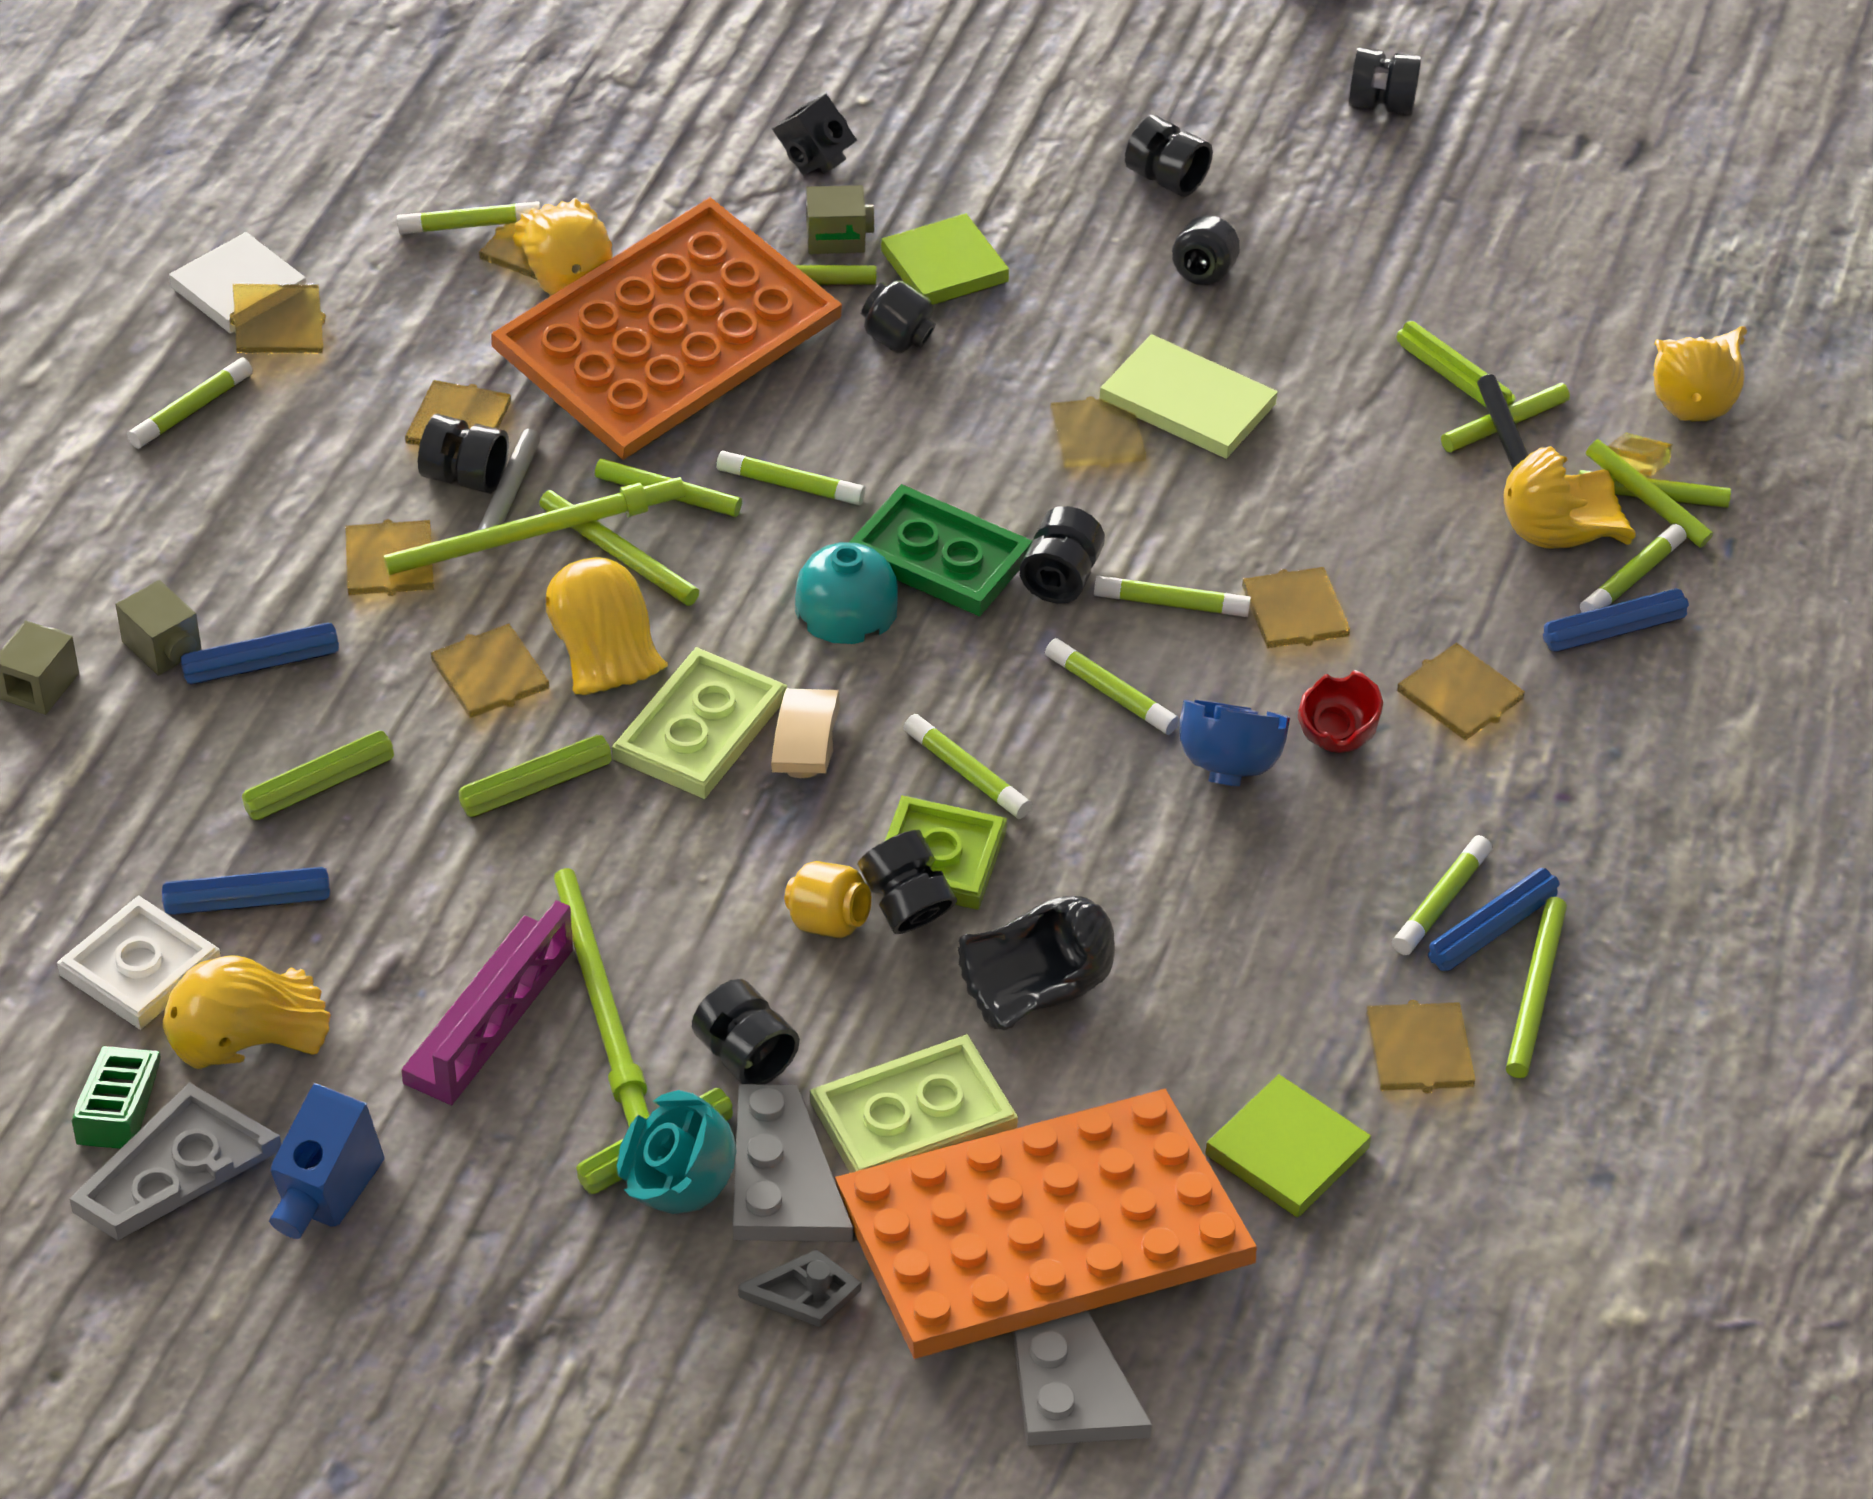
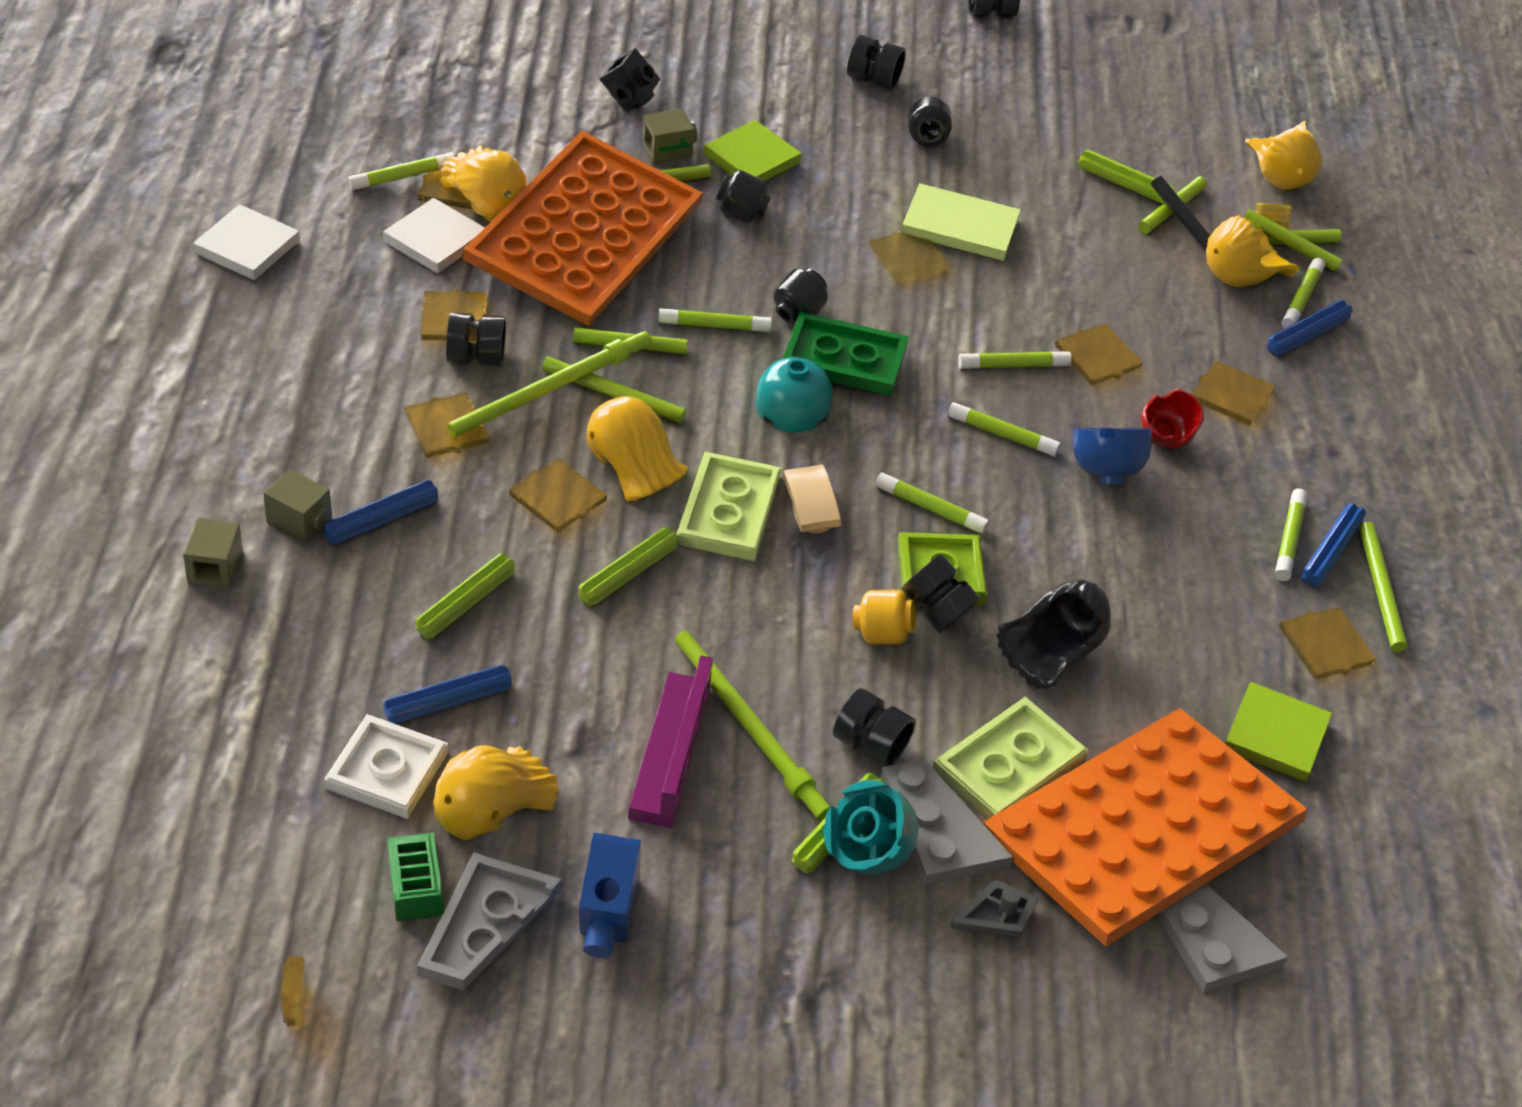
camera: 20 degrees left, 0 degrees up
(189, 403) = (246, 335): lime bar -> none
(277, 318) = (289, 263): clear yellow piece -> none
(471, 306) = (433, 235): none -> white tile
(511, 479) = (513, 354): light grey bar -> none
(913, 459) = (800, 292): none -> black head
(1062, 554) = (934, 343): black wheel -> none

